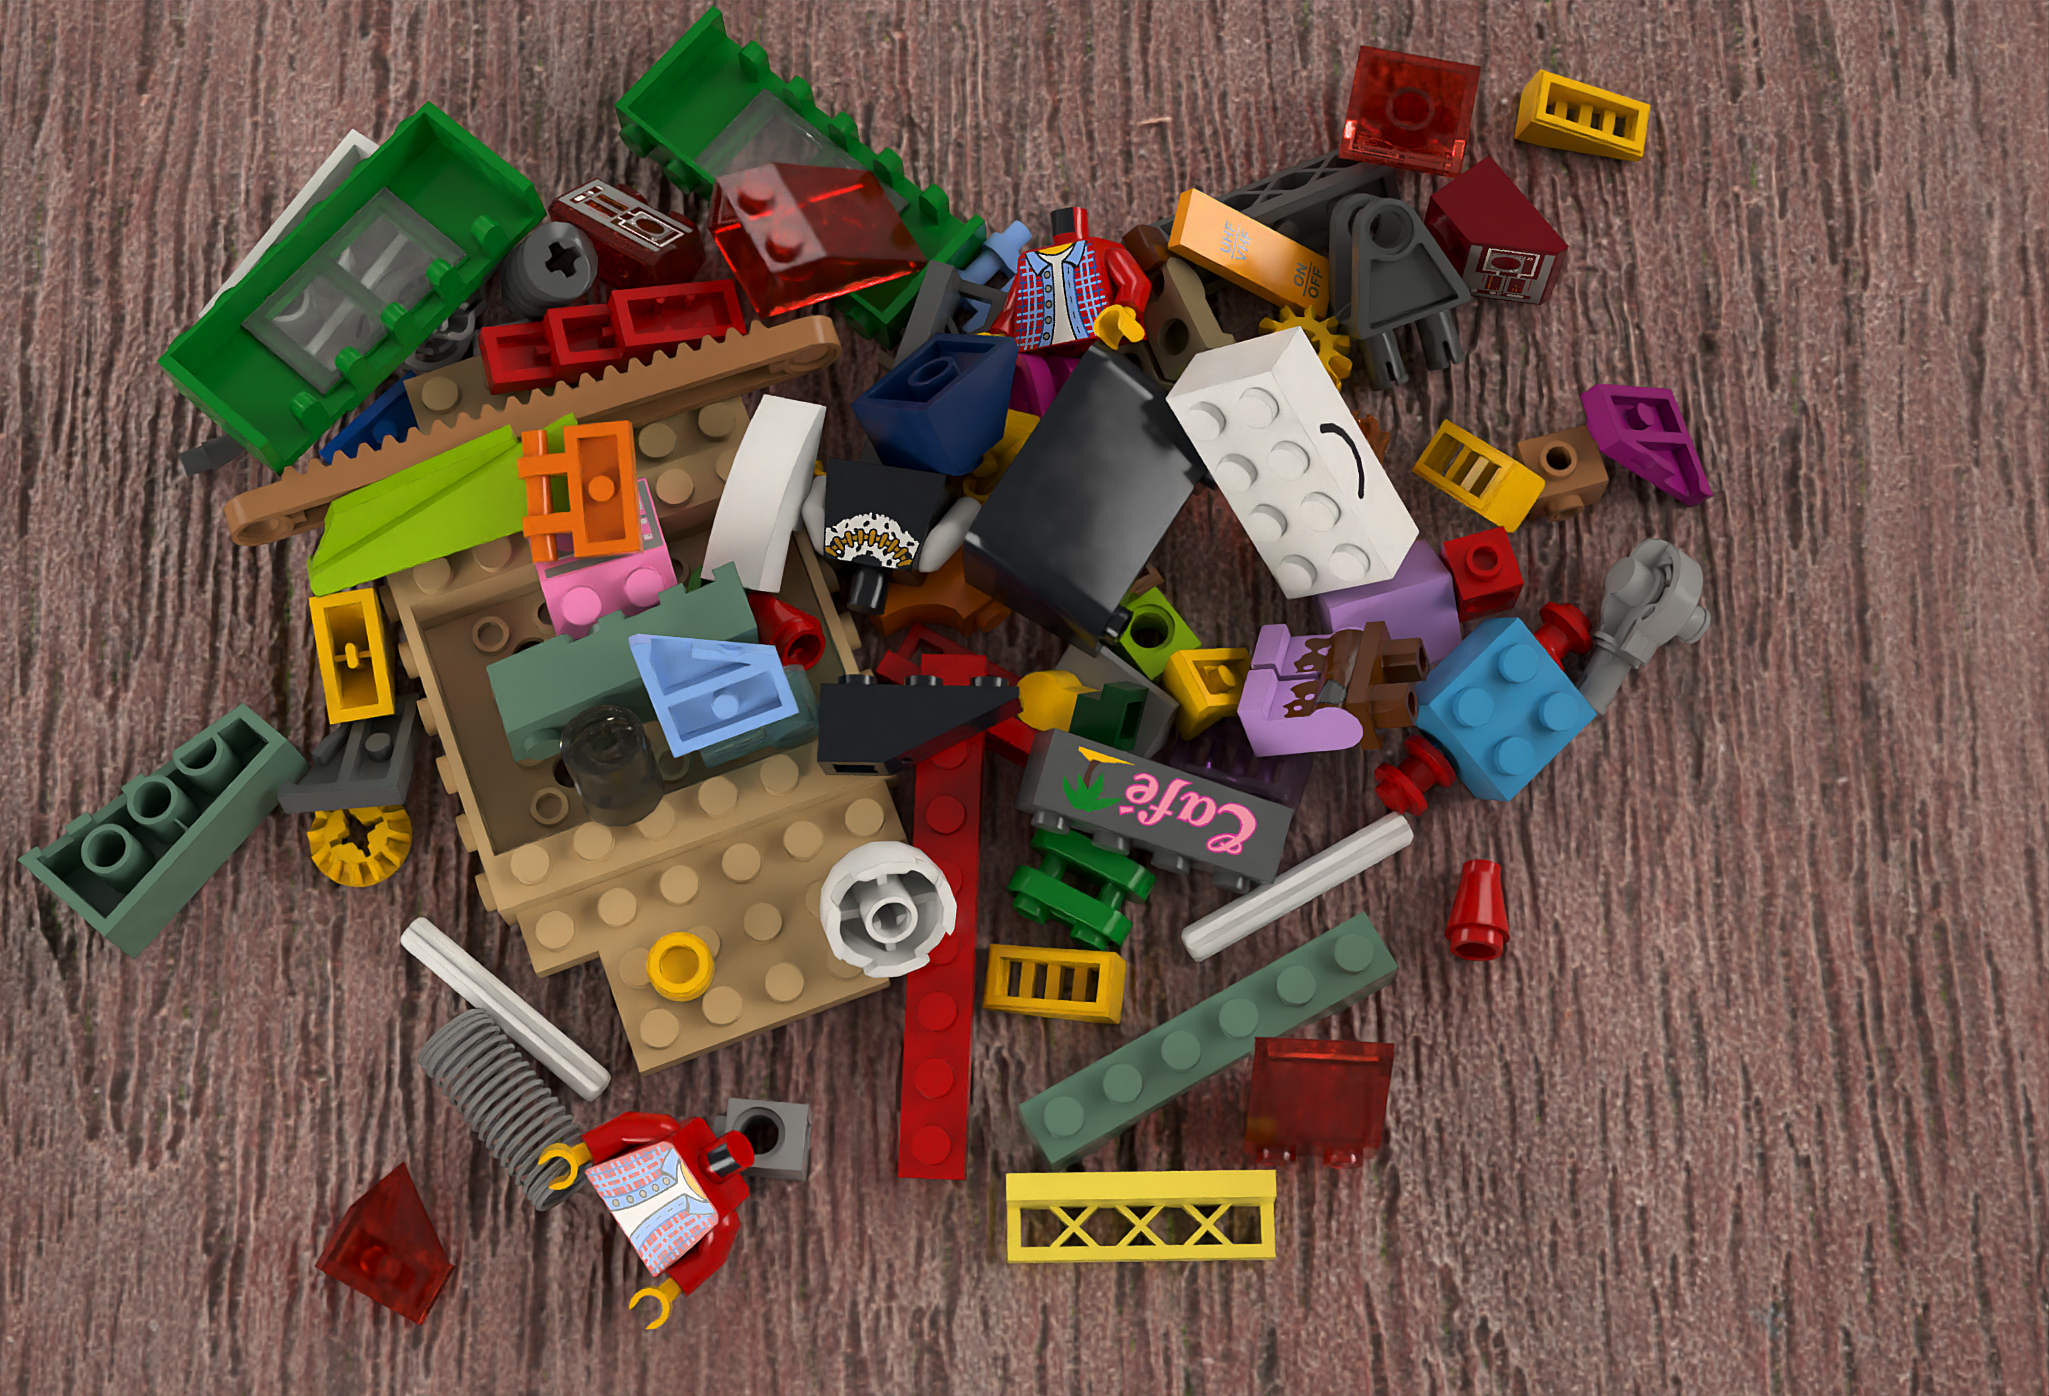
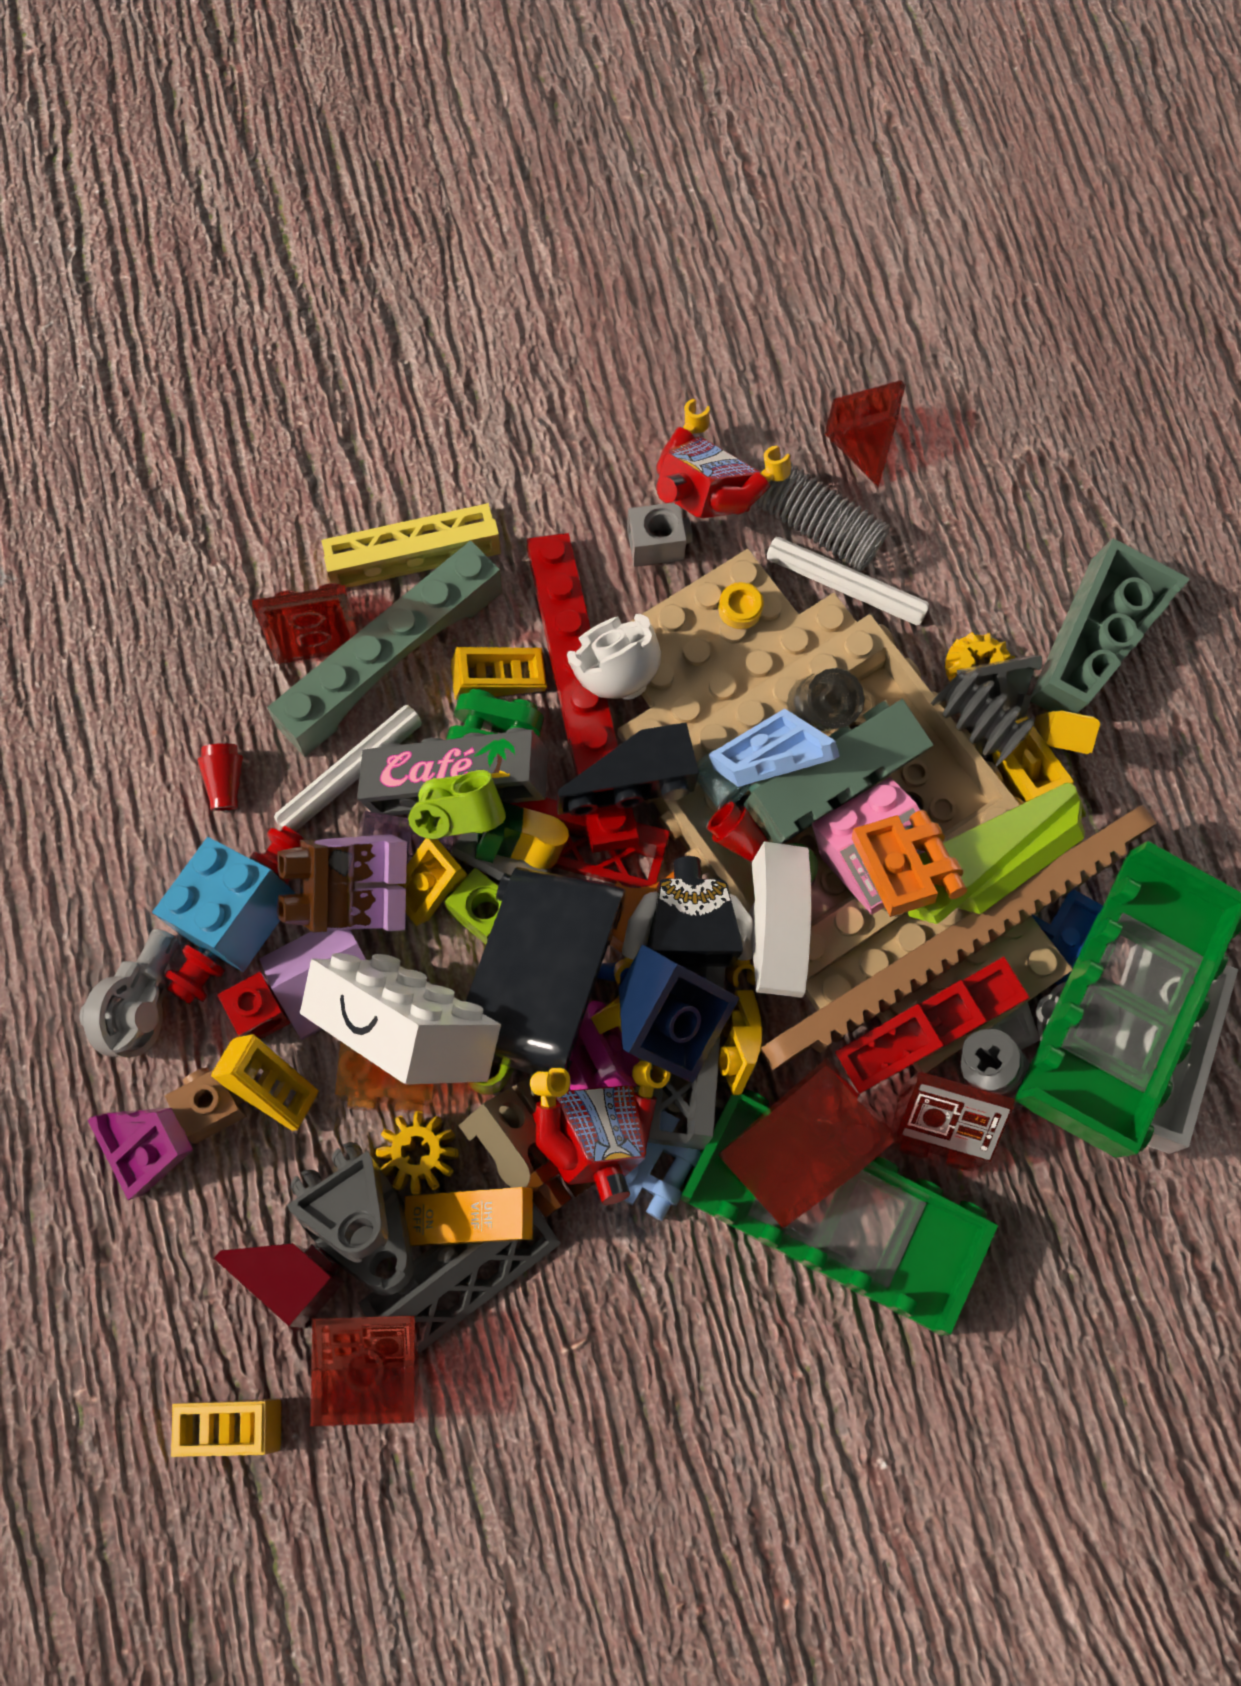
camera: 160 degrees right, 0 degrees up
(286, 682) = (1068, 730): none -> yellow slope
(395, 709) = (984, 714): none -> dark grey piece
(862, 360) = (742, 1043): none -> yellow slope
(1170, 735) = (461, 802): none -> lime piece

